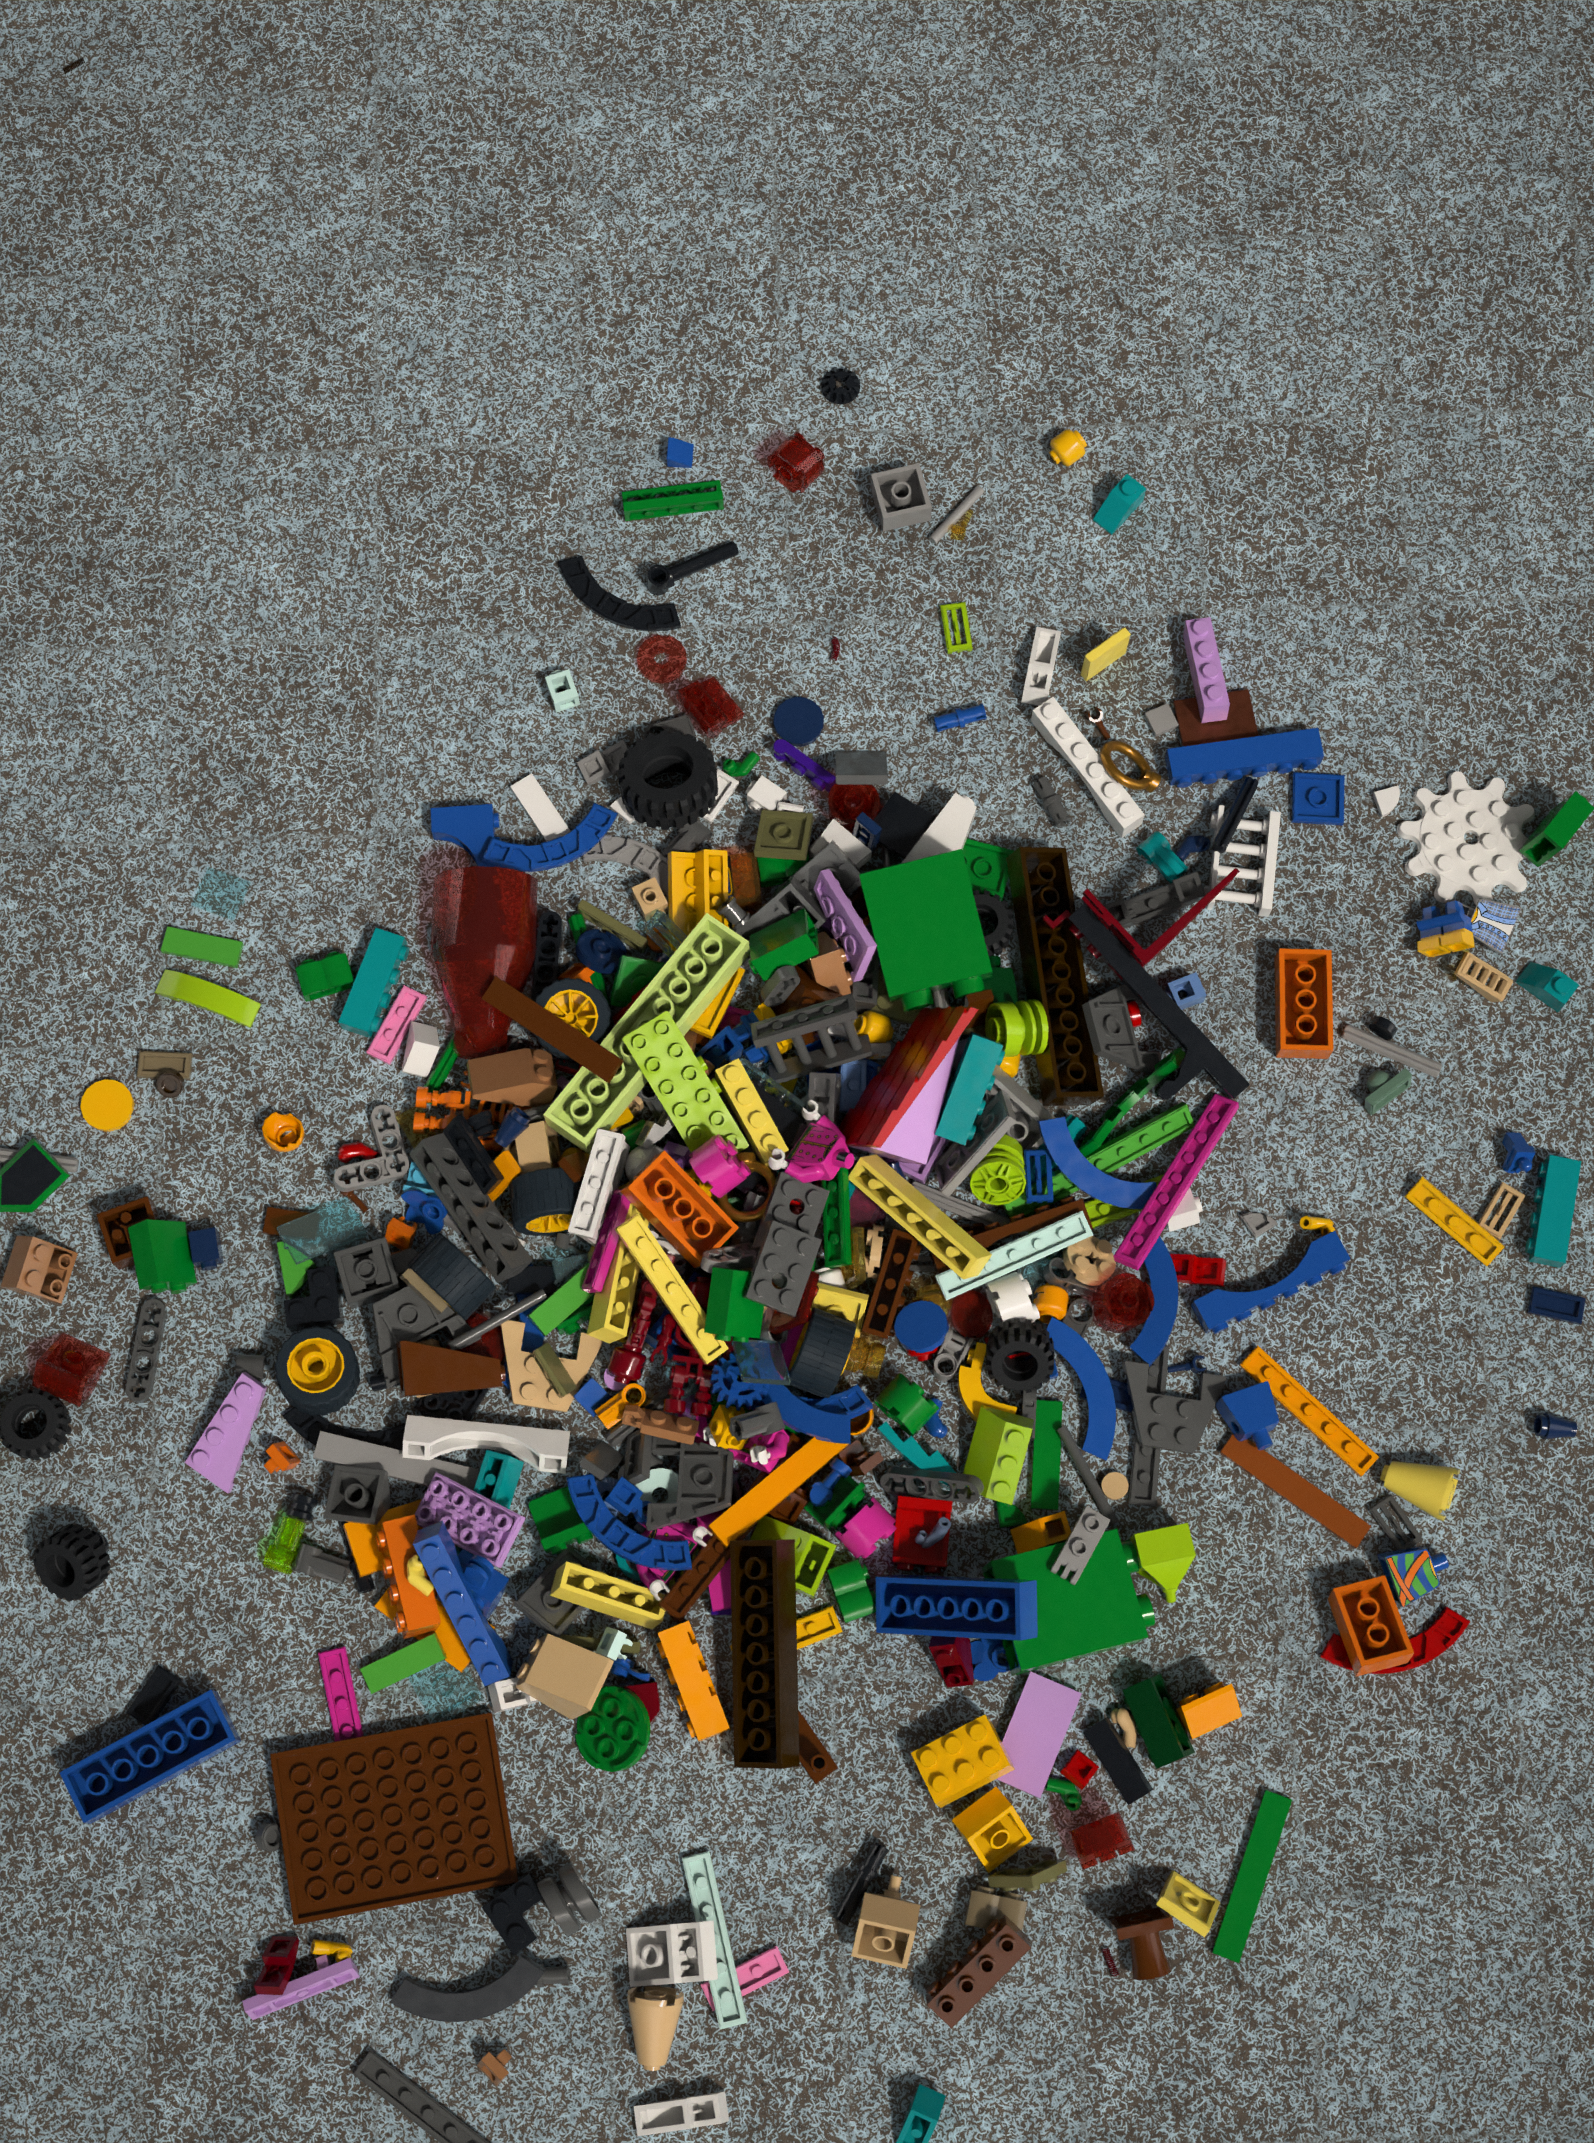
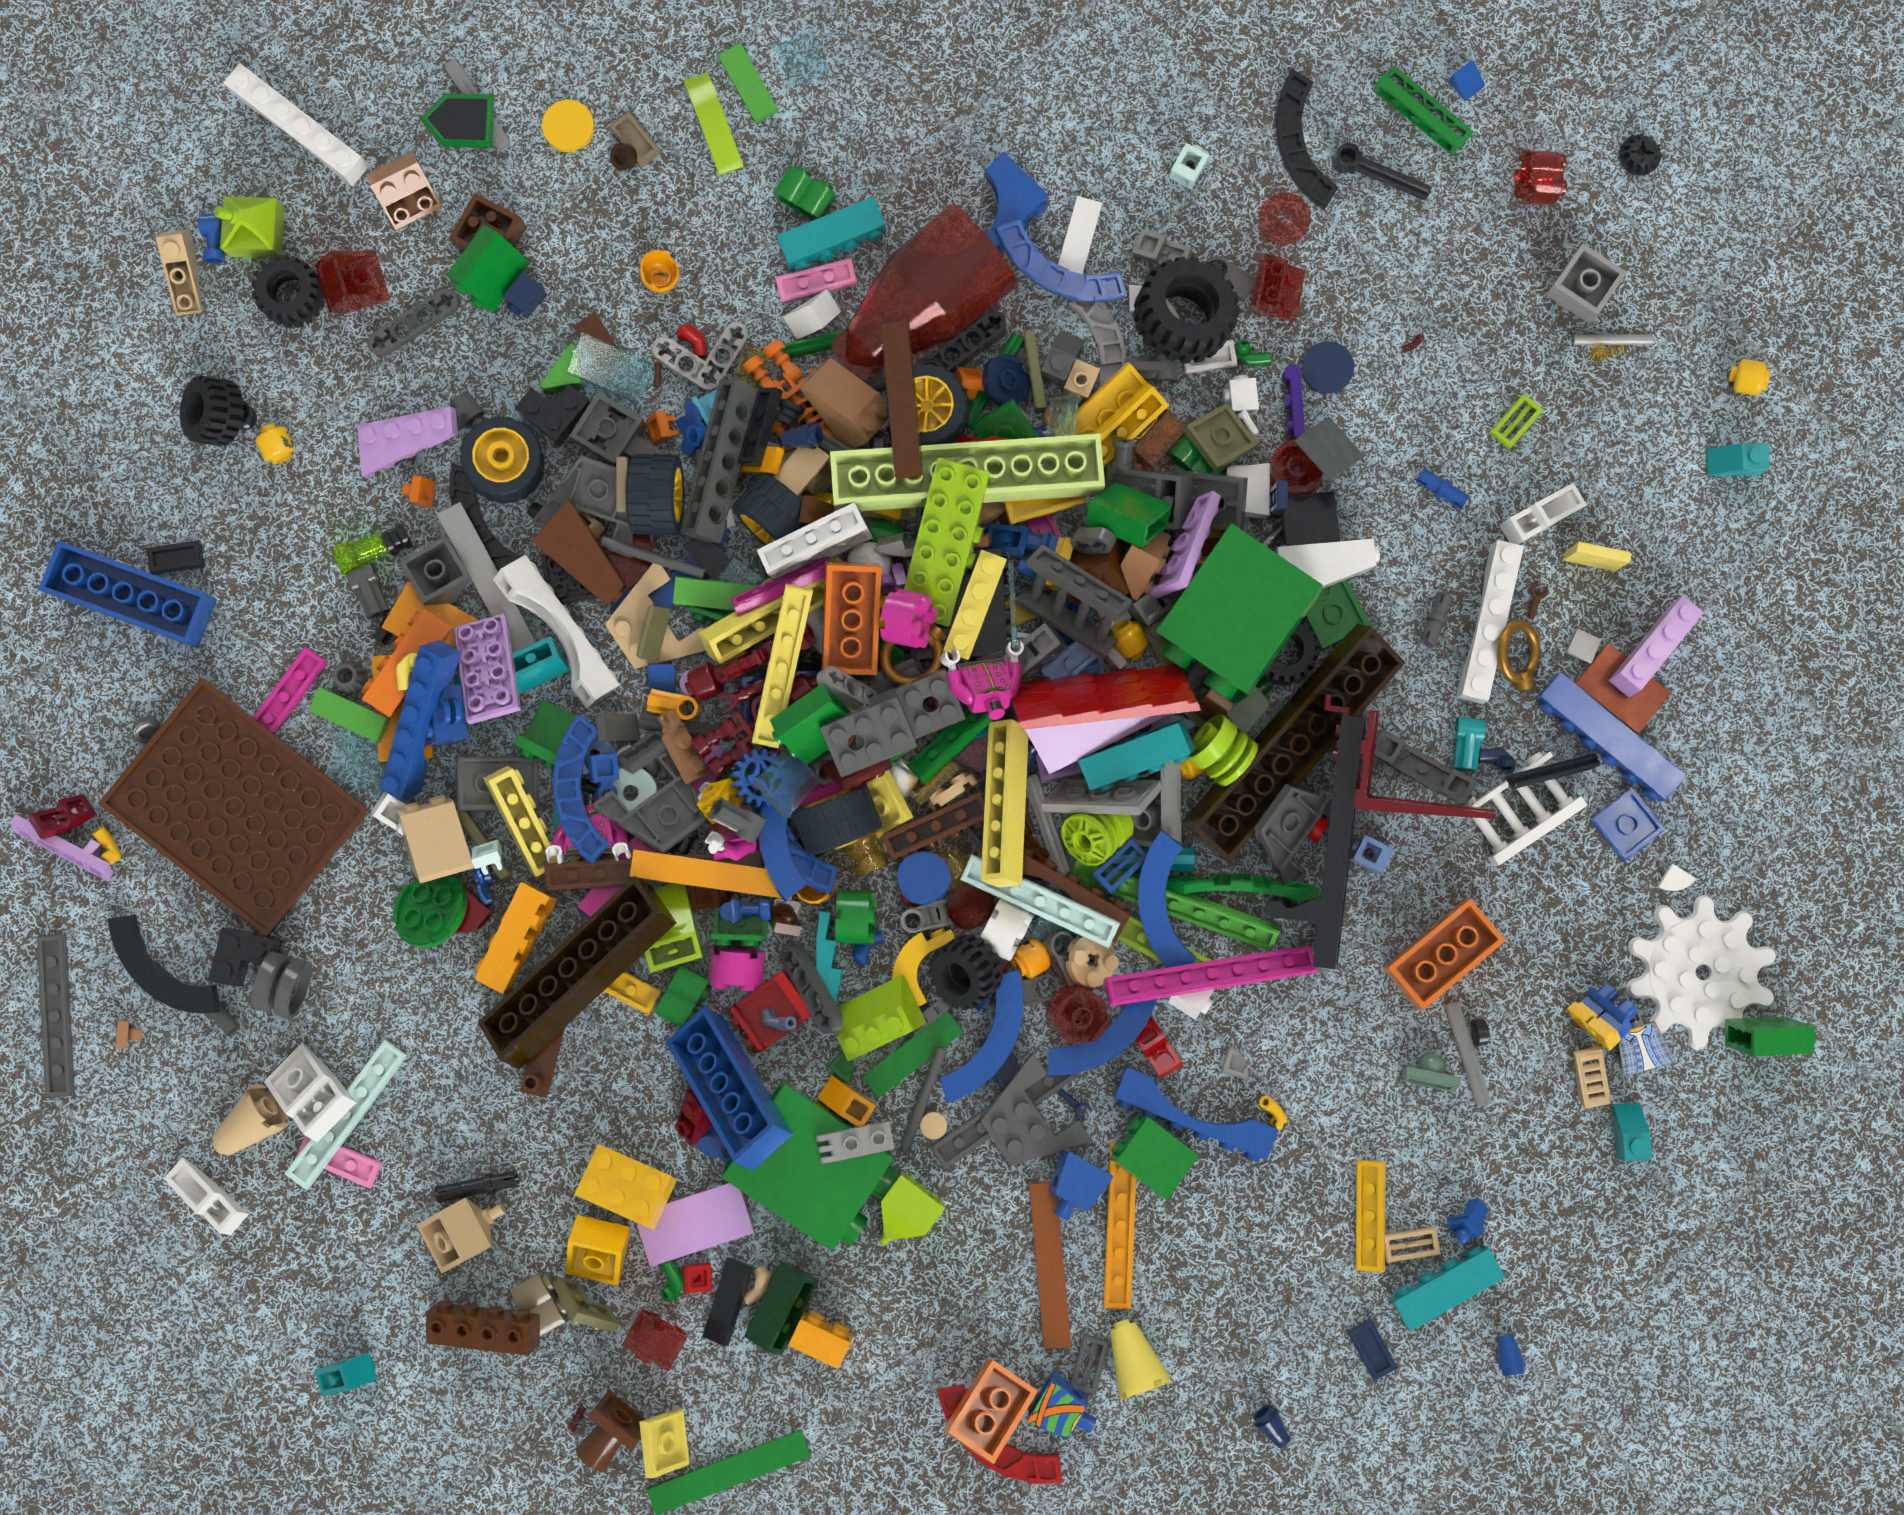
camera: 50 degrees right, 10 degrees up
(140, 1537) = (275, 443): none -> yellow head
(384, 1639) = (357, 682): none -> dark grey piece
(620, 899) = (1061, 358): none -> dark grey slope
(1277, 1339) = (1153, 1156): none -> green brick

